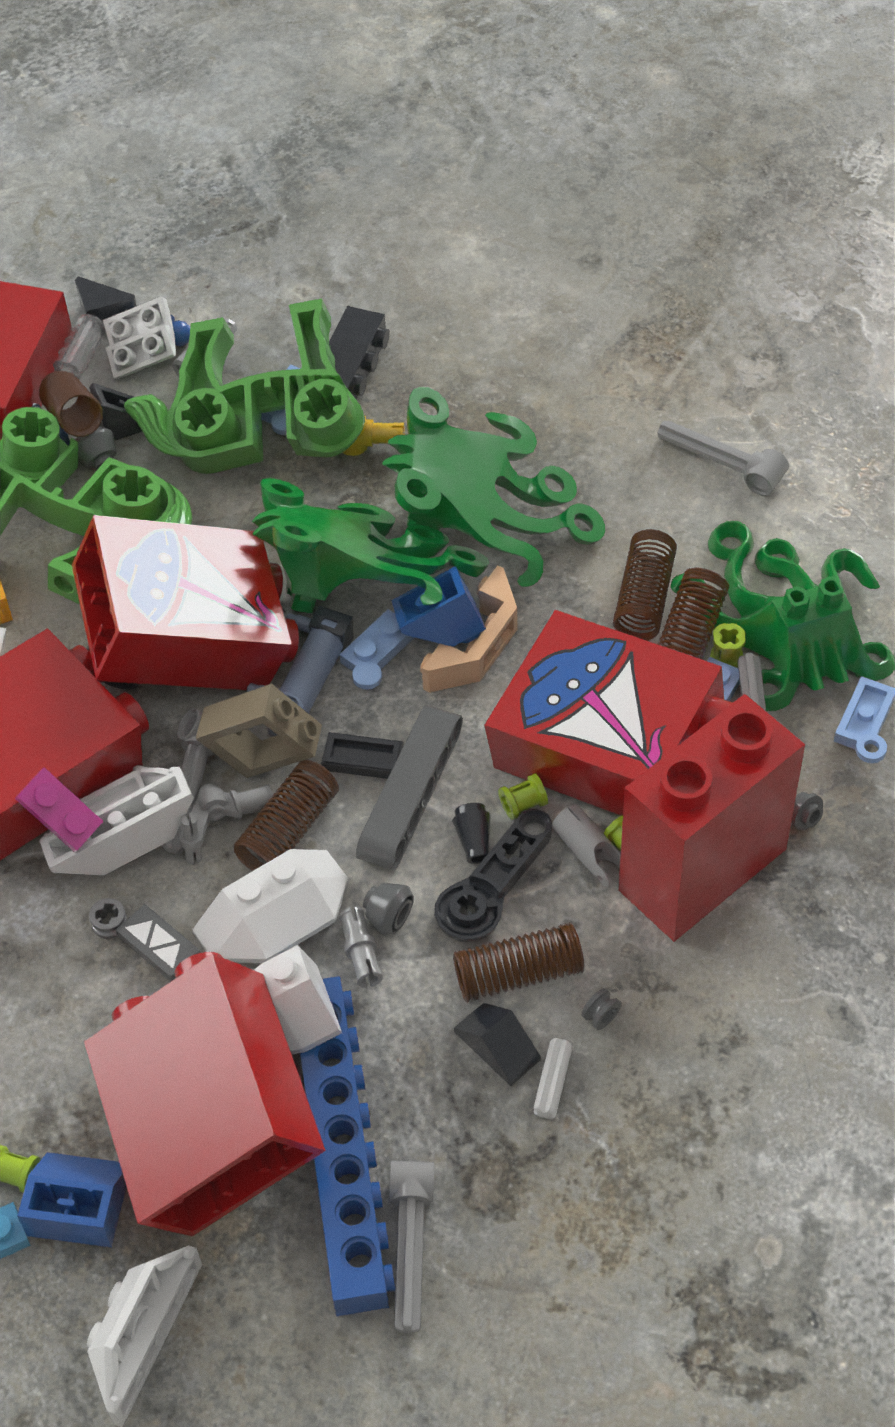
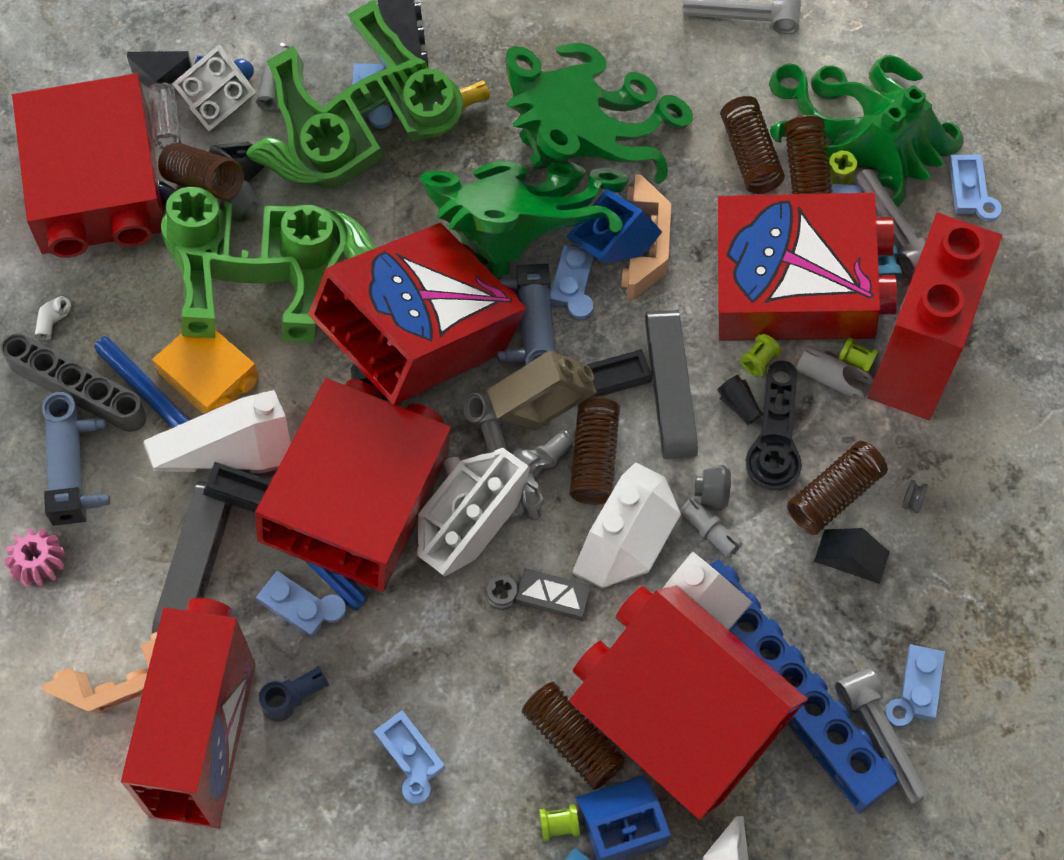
camera: 30 degrees left, 10 degrees up
(59, 809) = (433, 525): dark pink plate -> none
(69, 1052) = (600, 770): none -> reddish brown piece
(484, 1212) = (919, 686): none -> light blue hinge
(552, 1078) = (909, 564): white axle -> none

